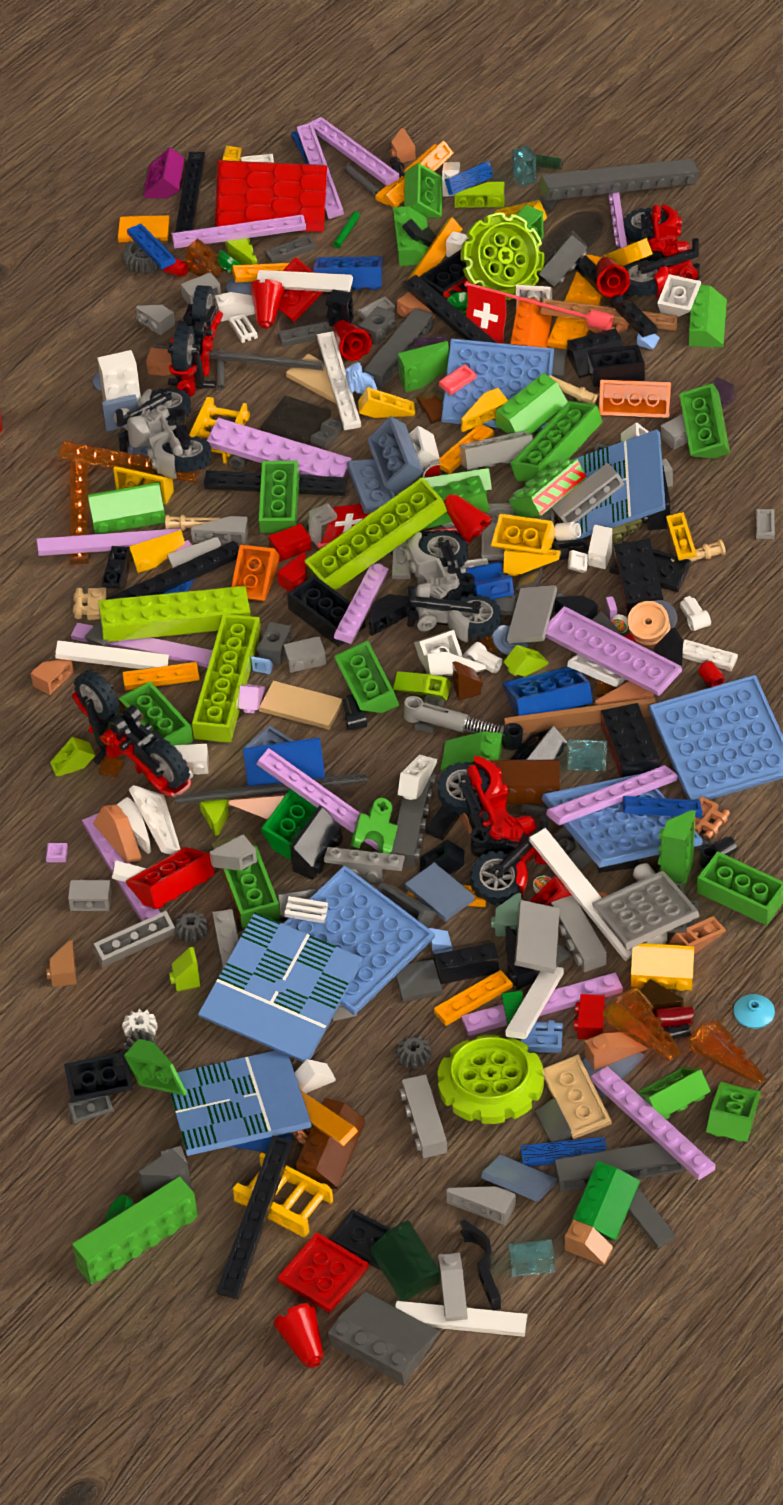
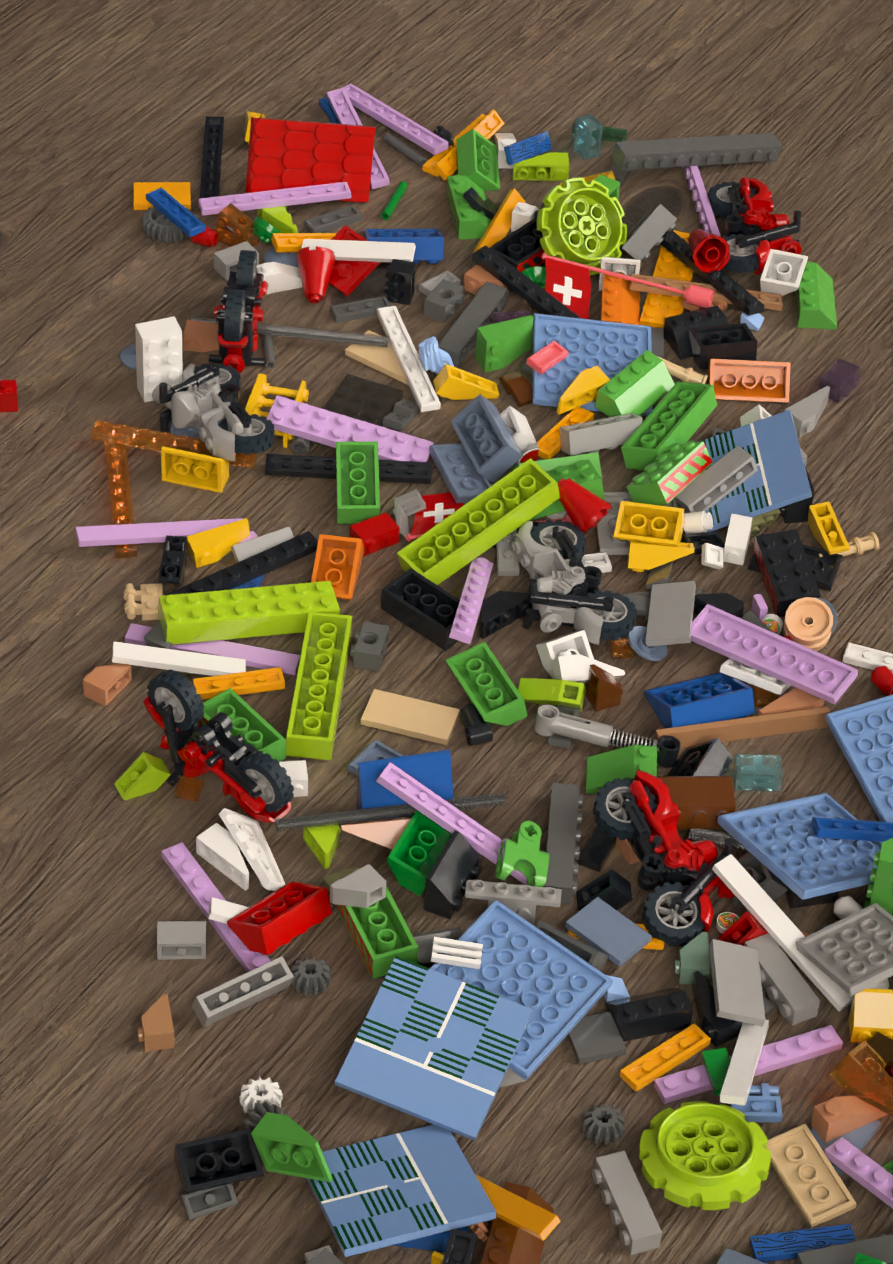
camera: 10 degrees left, 5 degrees down
(56, 852) = (133, 889): lavender tile -> none
(109, 408) = (148, 383): sand blue tile -> none
(118, 832) = (209, 863): nougat slope -> none
(126, 508) = (178, 494): slope -> none
(156, 317) = (187, 289): light grey slope -> none
(164, 175) = (179, 140): magenta slope -> none
(185, 522) = (244, 511): tan pin -> none
(185, 971) = (311, 1029): lime slope -> none
(225, 934) = (355, 988): light grey brick -> none
(226, 529) = (299, 517): light grey slope -> none
(251, 697) = (350, 708): lavender slope -> none
(253, 333) = (285, 302): white tile -> none
(261, 665) = (357, 671): light blue slope -> none
(293, 573) = (383, 568): red slope -> none
(304, 654) = (408, 659): light grey brick -> none
(313, 1075) = (484, 1154): white slope -> none
(351, 340) = (418, 315): red cone -> none
(403, 147) = (448, 115): nougat slope -> none
(415, 777) = (564, 797): white slope -> none
(479, 654) = (613, 656): white piece -> none
(491, 581) = (618, 577): blue panel -> none
(524, 661) = (667, 666): lime slope -> none
(553, 1121) = (786, 1206): dark grey slope -> none
(590, 1017) = (811, 1078): red brick -> none
(611, 795) = (797, 817): lavender tile -> none
(629, 740) = (805, 756): black brick -> none
(631, 252) = (726, 225): yellow slope -> none
(671, 647) = (839, 646): black slope -> none
(695, 615) = (857, 618): white piece -> none
(704, 422) = (834, 405): bright green slope -> none

